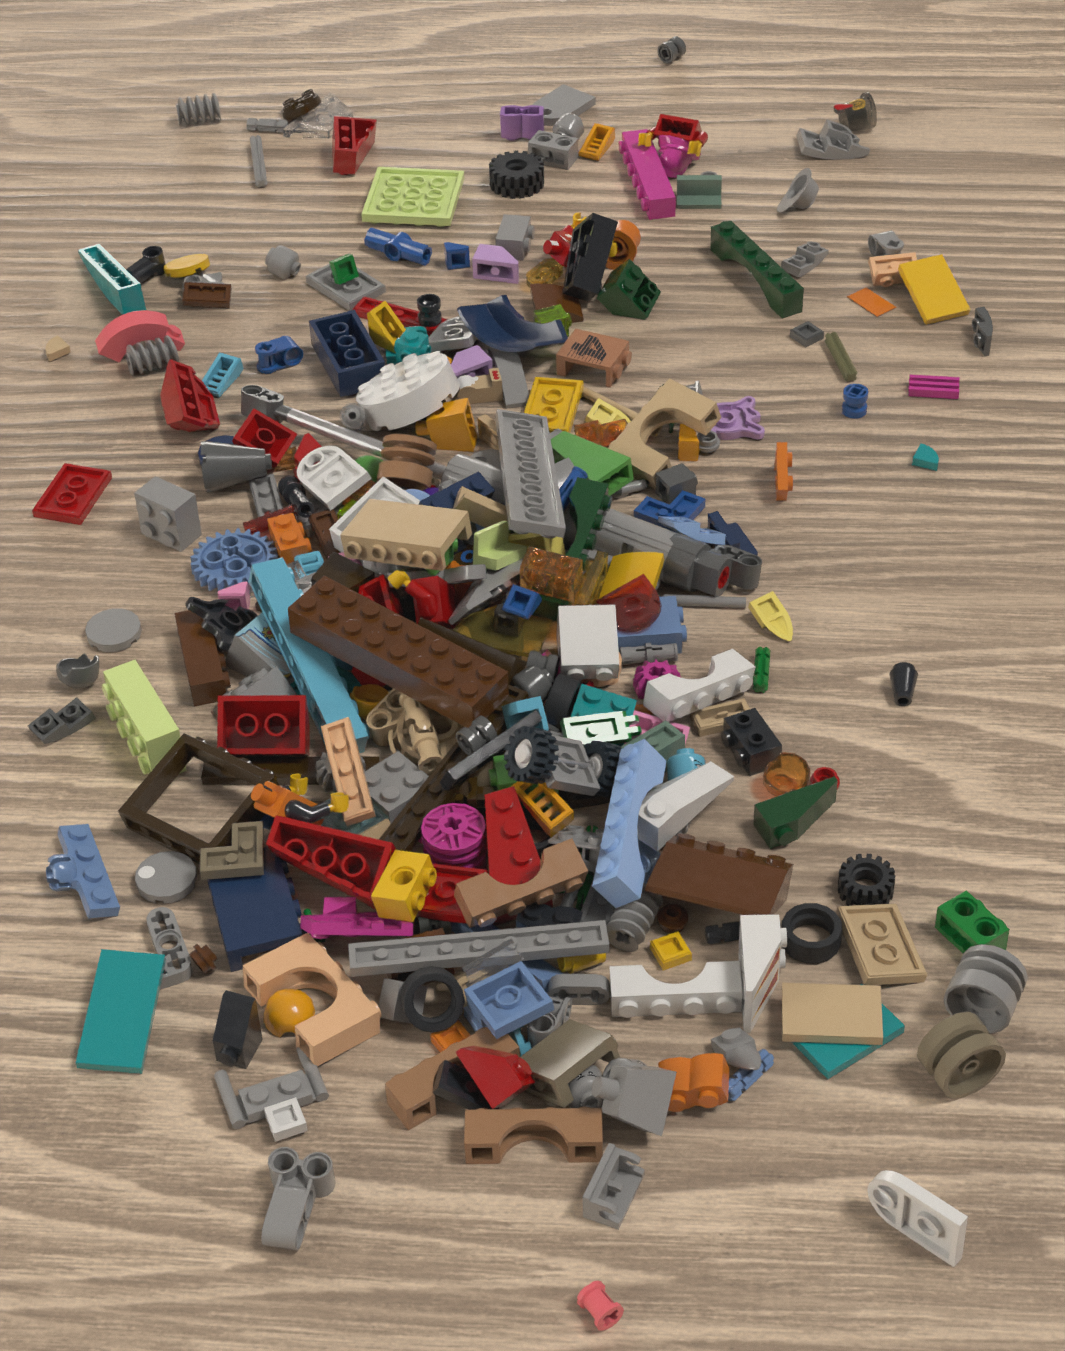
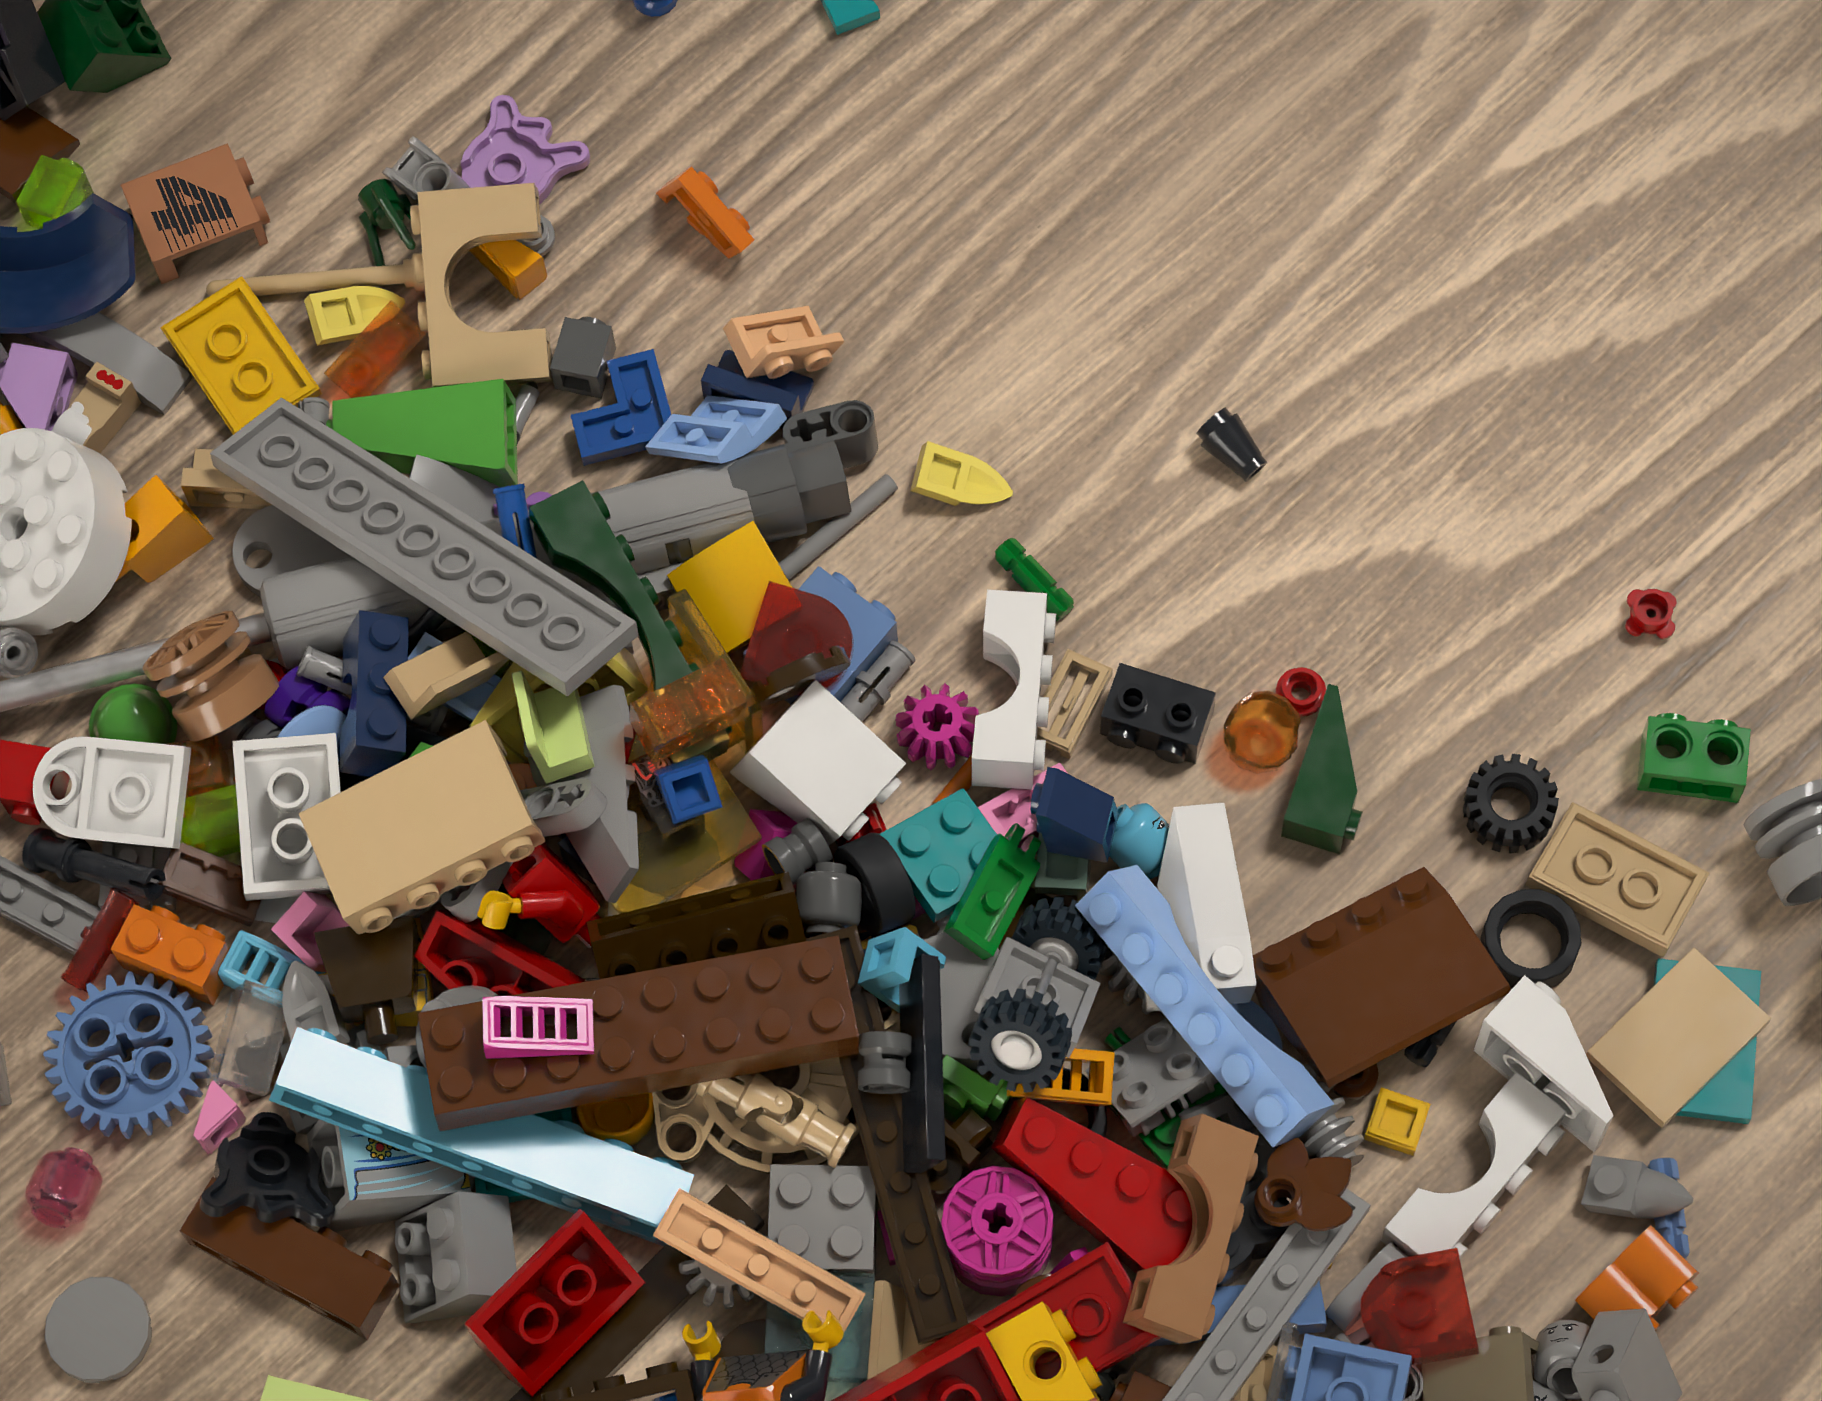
camera: 45 degrees left, 25 degrees up
(159, 579) = (63, 1187): none -> clear pink head
(346, 587) = (517, 1007): none -> slope
(584, 1000) = (1420, 1308): none -> clear red tile
(586, 912) = (1310, 1185): none -> reddish brown plate
(611, 593) = (799, 675): none -> dark brown tile
(660, 720) = (1074, 816): none -> dark blue slope
(756, 526) = (780, 342): none -> light nougat bracket
(1021, 869) = (1651, 599): none -> red plate

